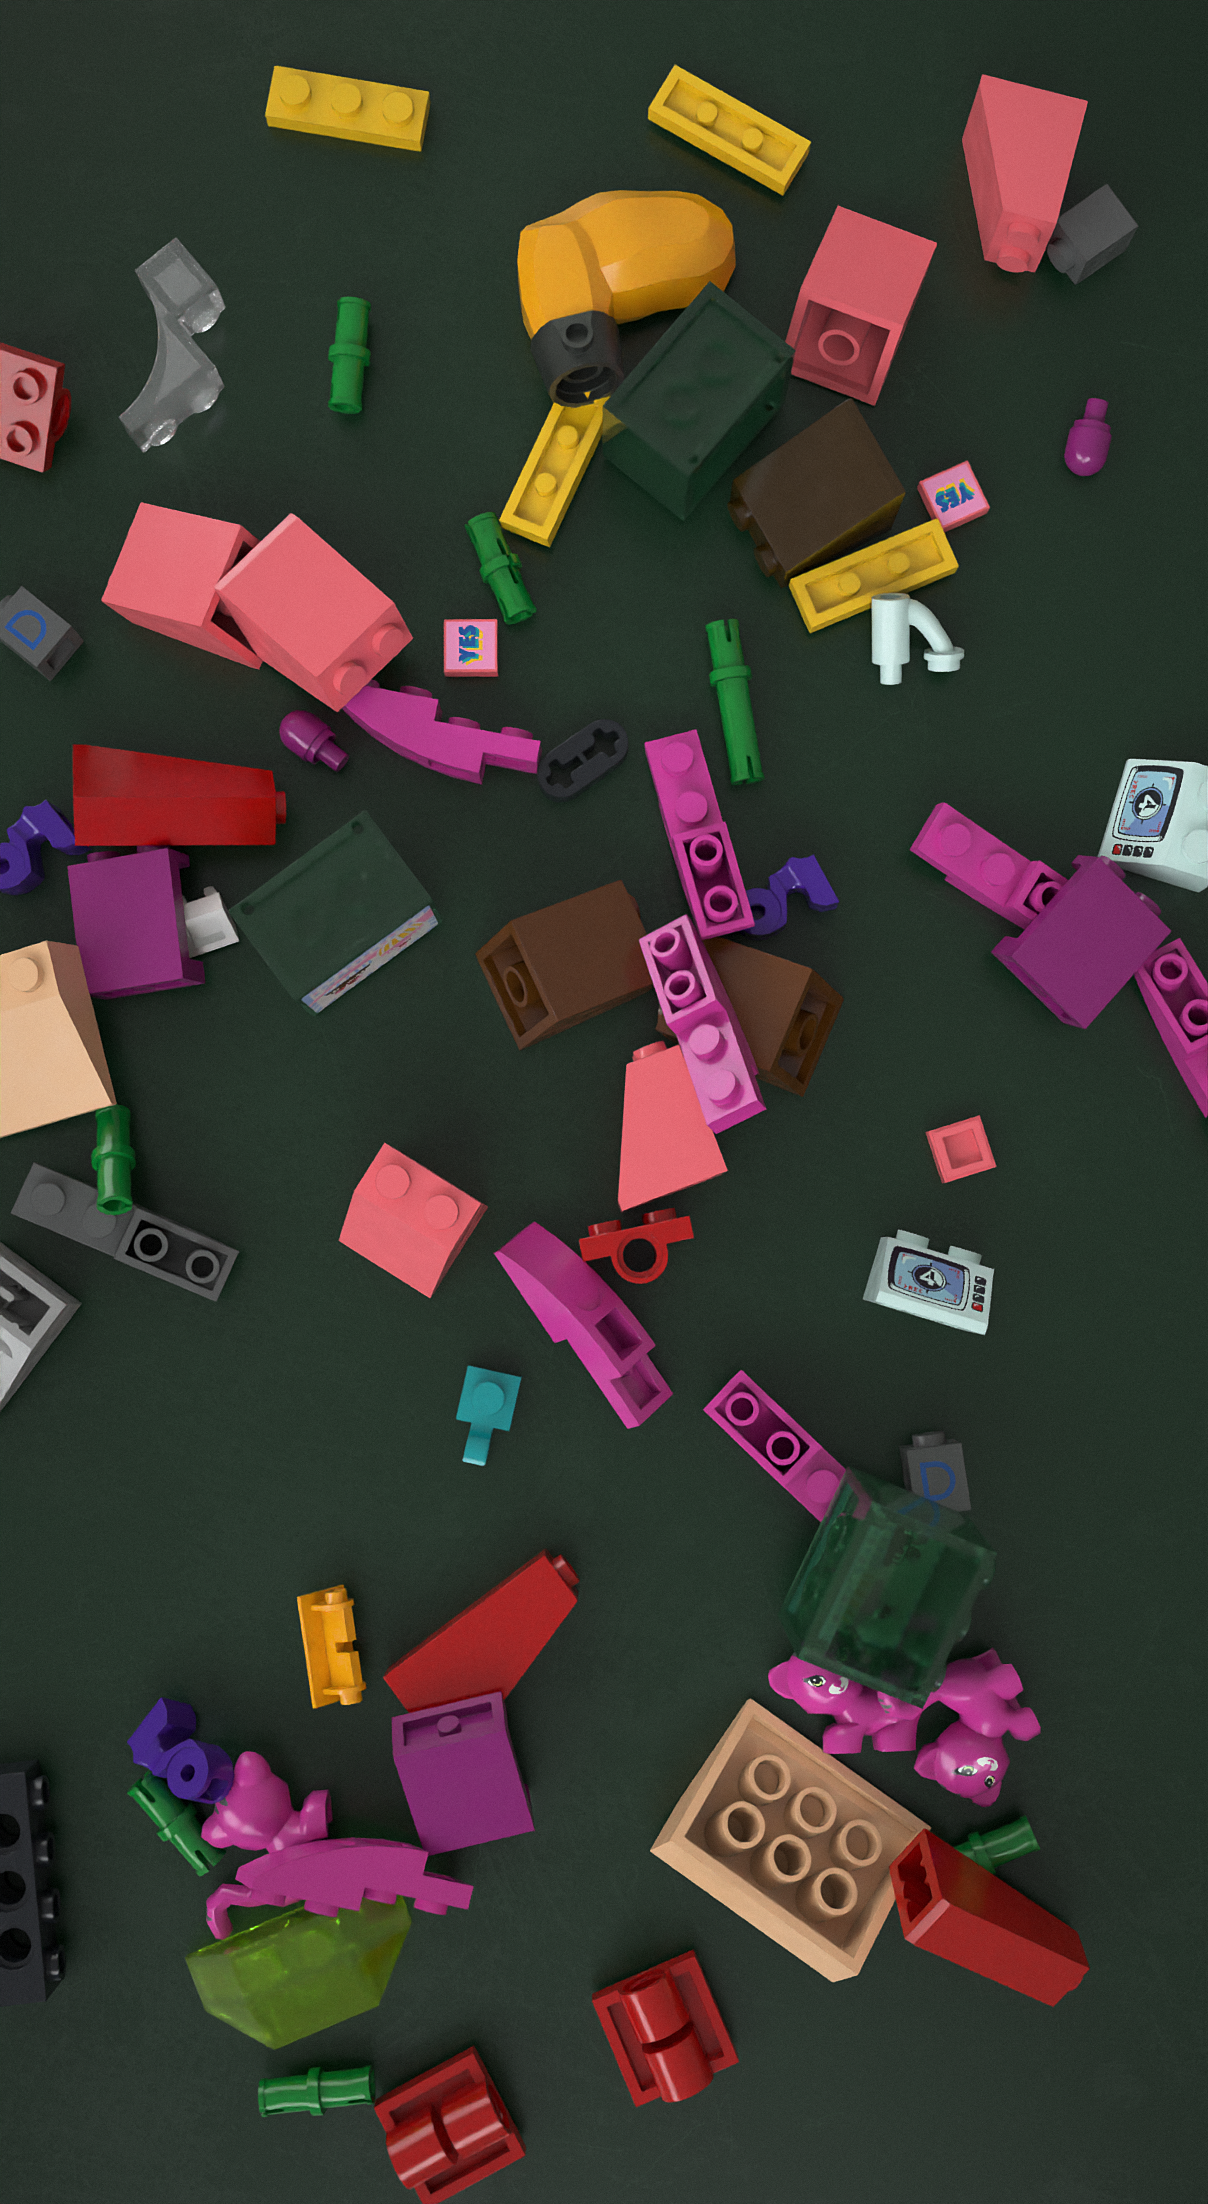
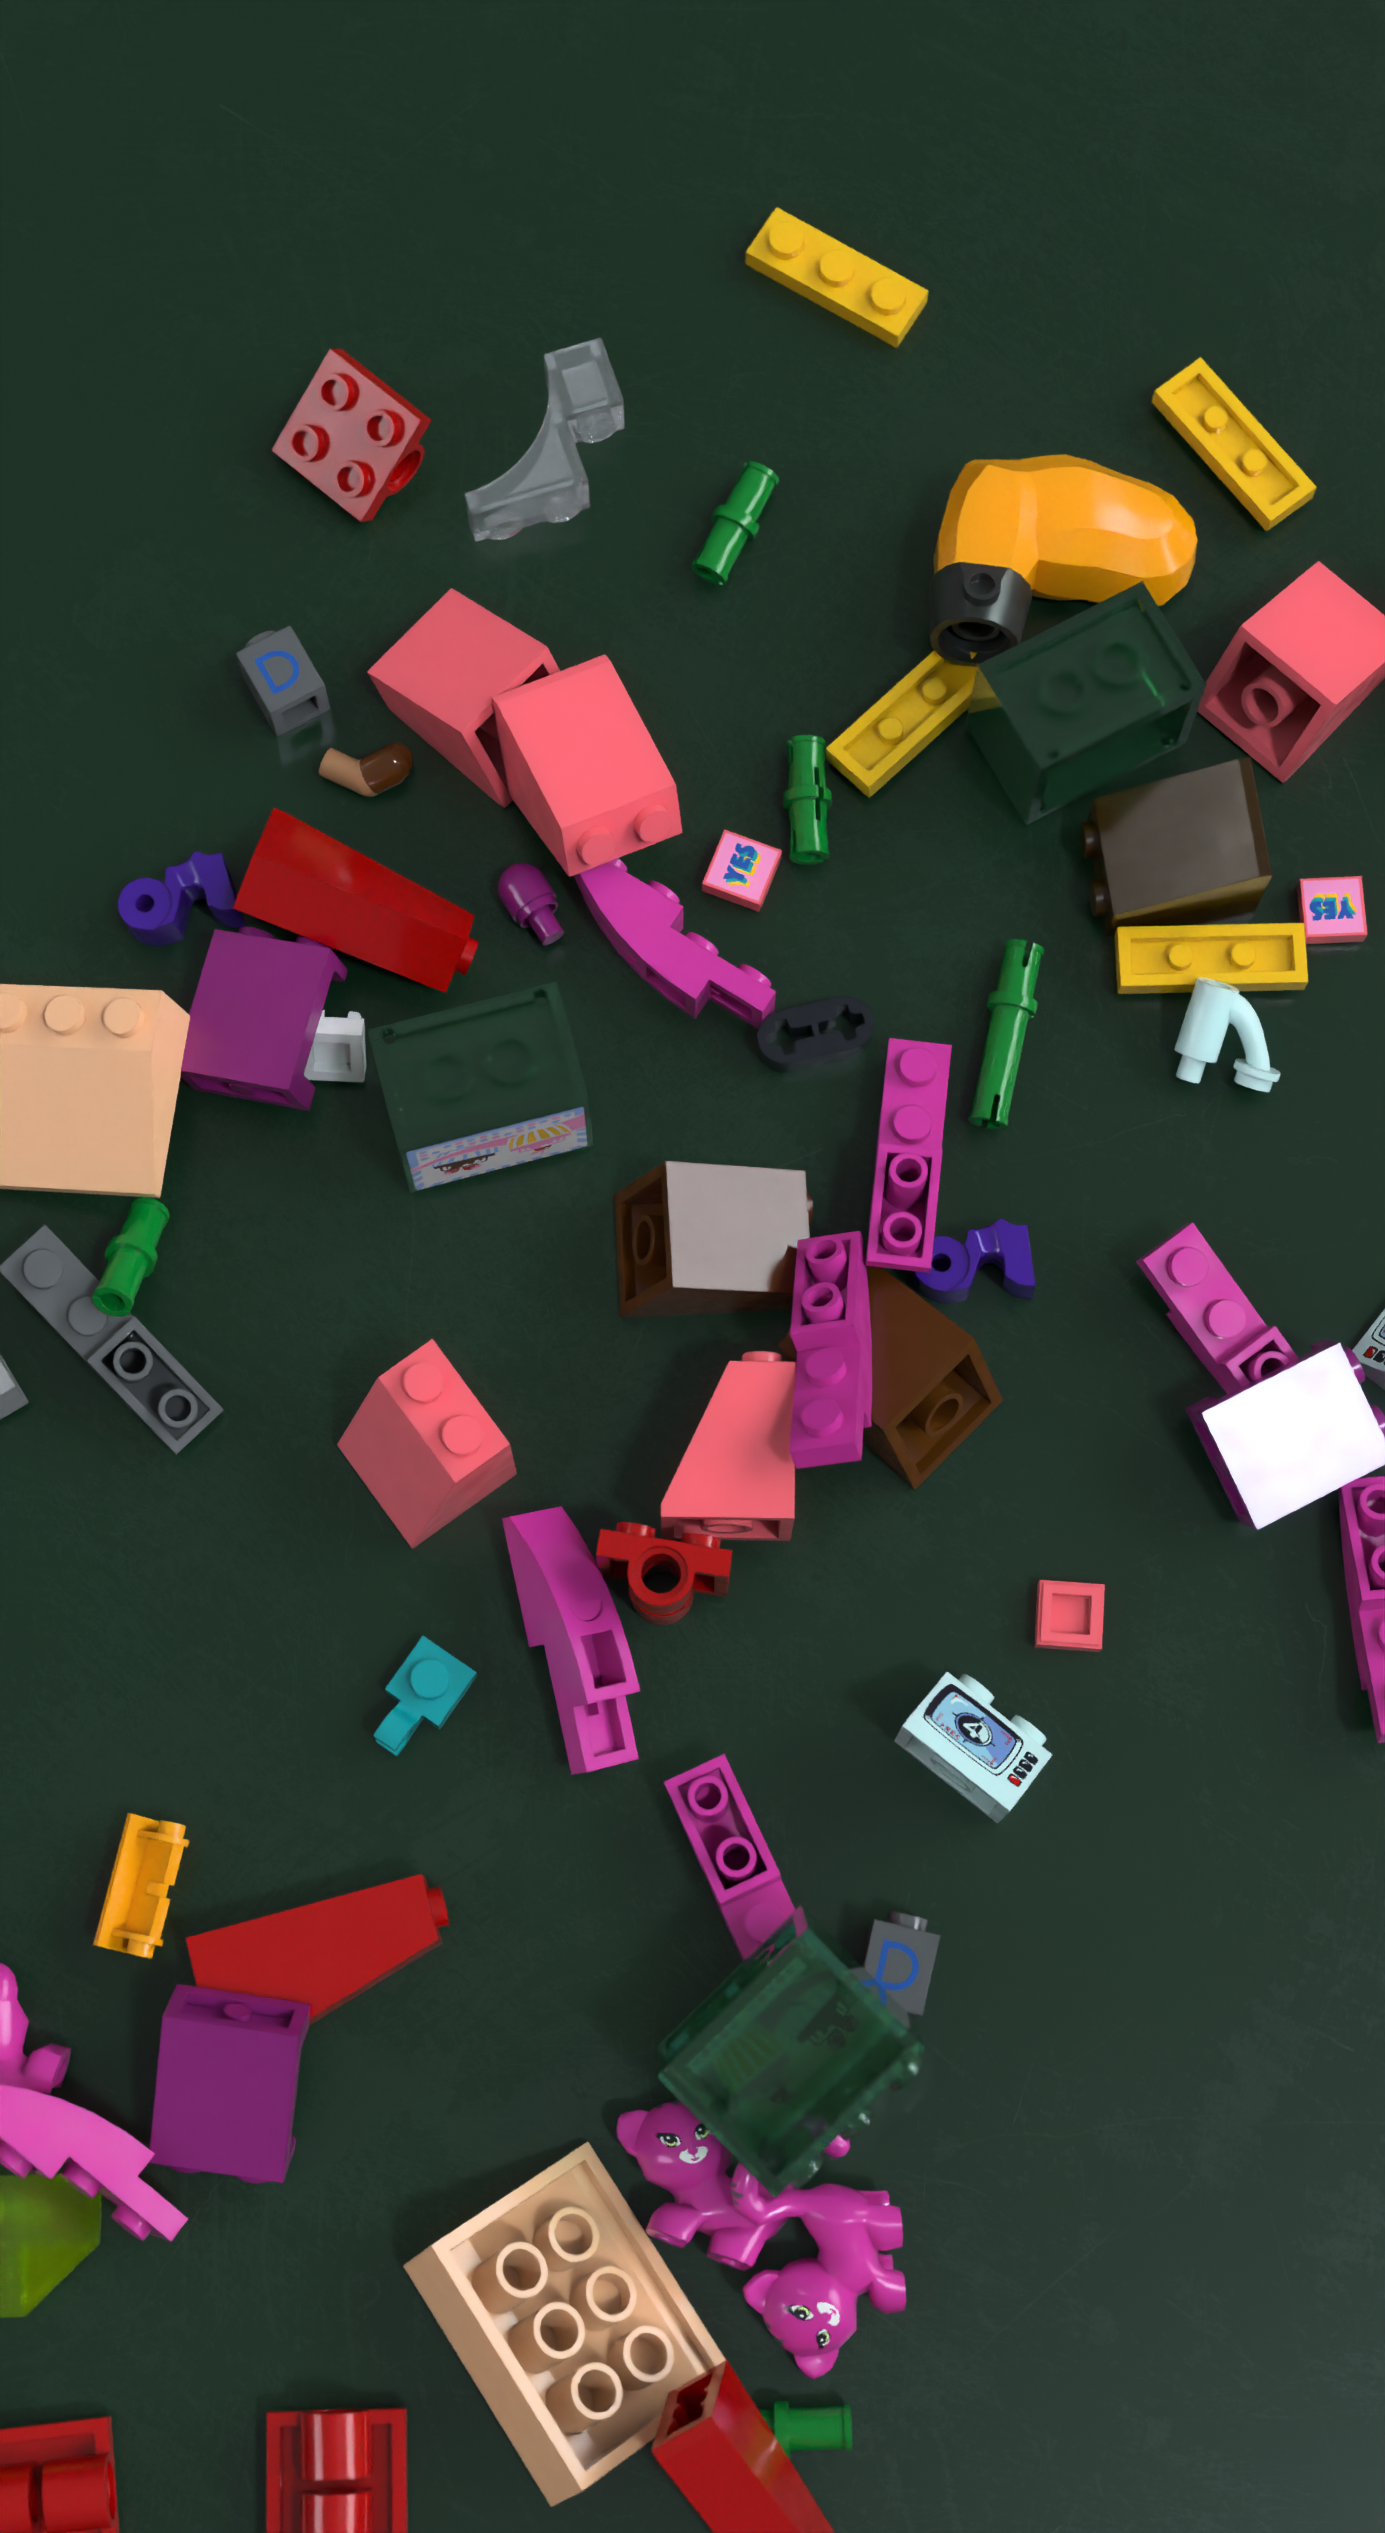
camera: 20 degrees right, 10 degrees down
(139, 684) = (370, 774): none -> arm

